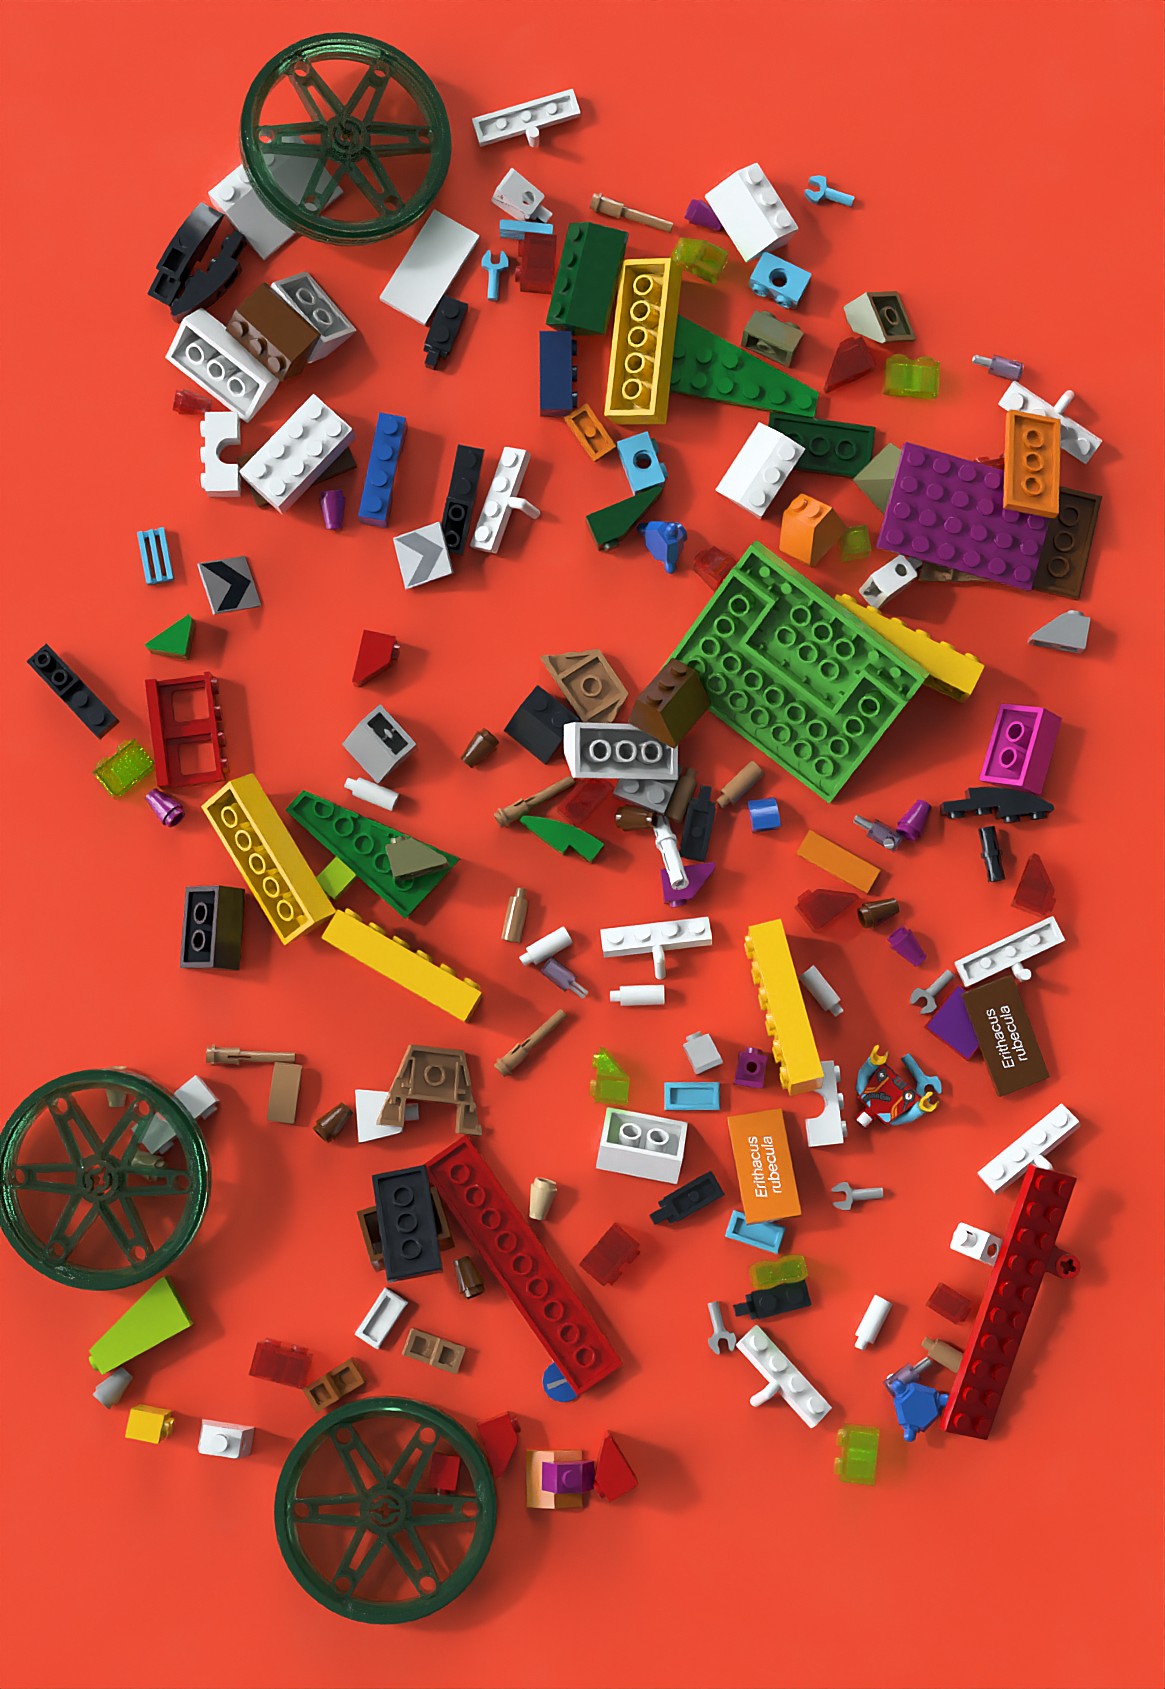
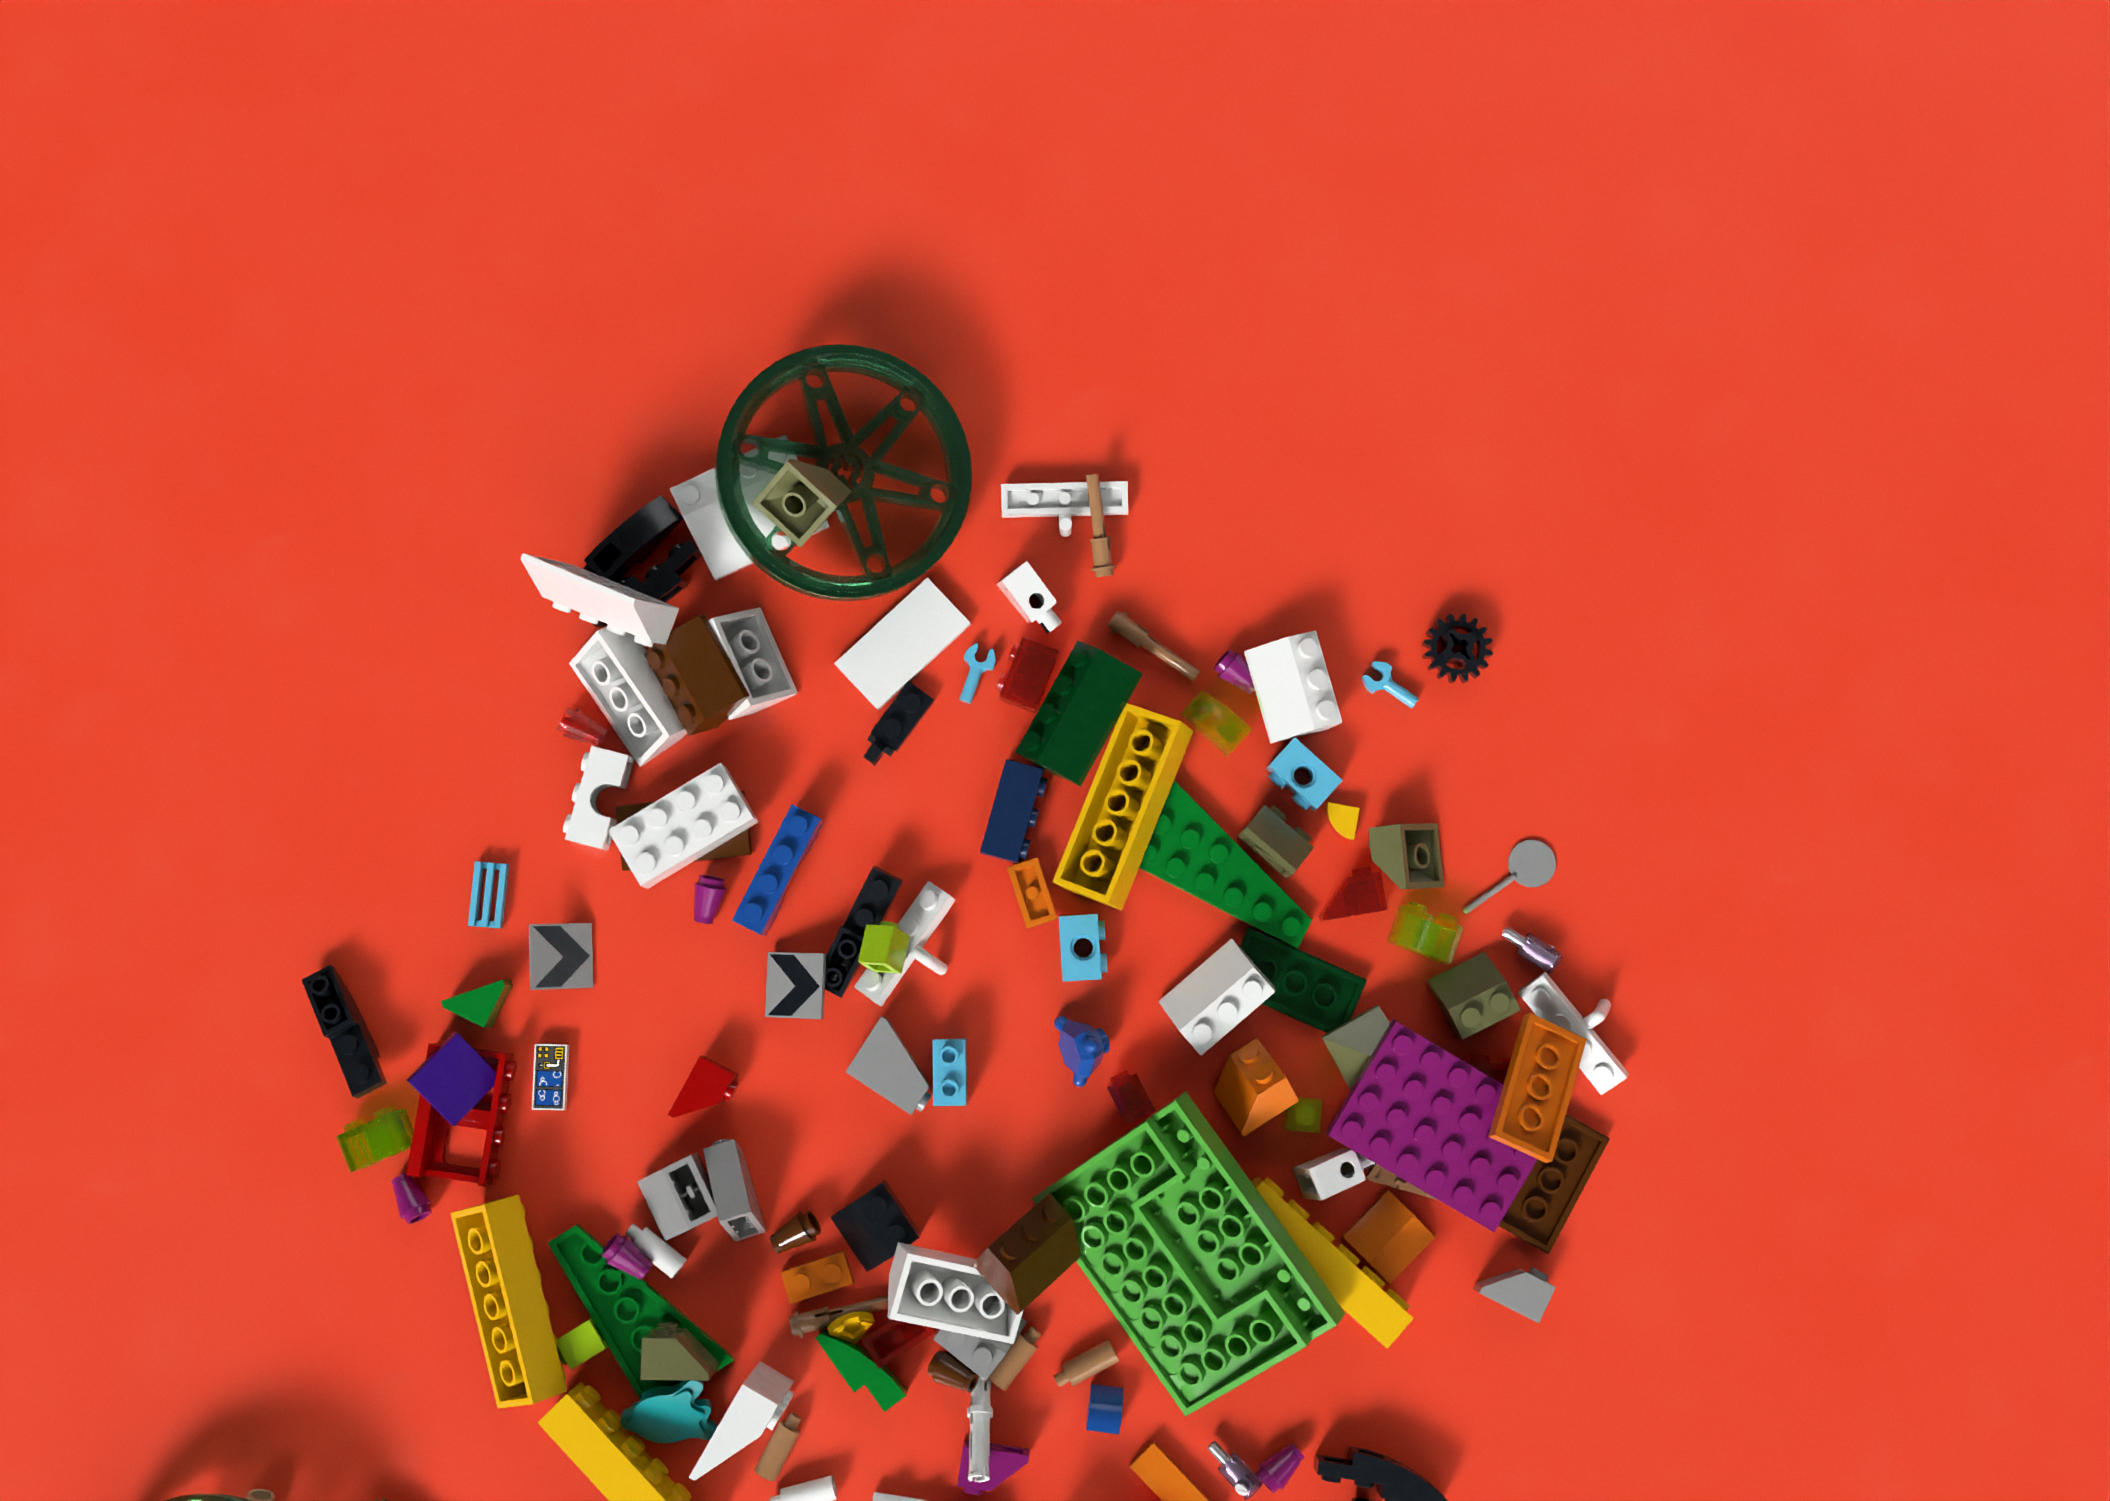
camera: 15 degrees right, 0 degrees up
(173, 701) = (453, 1079): none -> dark purple tile
(181, 288) = (602, 600): none -> white slope
(212, 928) = (422, 1360): black slope -> none
(248, 683) = (550, 1077): none -> tile
(319, 163) = (801, 499): none -> olive slope
(350, 800) = (625, 1256): none -> magenta cone
(421, 728) = (733, 1190): none -> light grey slope
(423, 910) = (671, 1414): none -> teal tile
(486, 503) = (884, 948): none -> lime brick
(486, 883) = (754, 1408): none -> white slope
(506, 778) = (817, 1277): none -> orange plate
(516, 229) = (1018, 630): medium azure tile -> none
(517, 600) = (890, 1069): none -> light grey slope
(545, 806) = (851, 1326): none -> yellow tile
(565, 142) = (1100, 543): none -> medium nougat pin
(565, 588) = (949, 1072): none -> medium azure brick
(587, 684) = (943, 1195): medium nougat wing -> none
(616, 521) = (1032, 1008): dark green slope -> none
(698, 826) = (1023, 1401): black hinge -> none
(821, 307) = (1343, 819): none -> yellow tile
(881, 157) = (1464, 658): none -> black gear
(951, 618) = (1388, 1236): none -> orange slope
(963, 415) = (1473, 996): none -> olive slope
(979, 303) = (1529, 864): none -> light grey piece
(1020, 748) = (1429, 1418): dark pink slope -> none

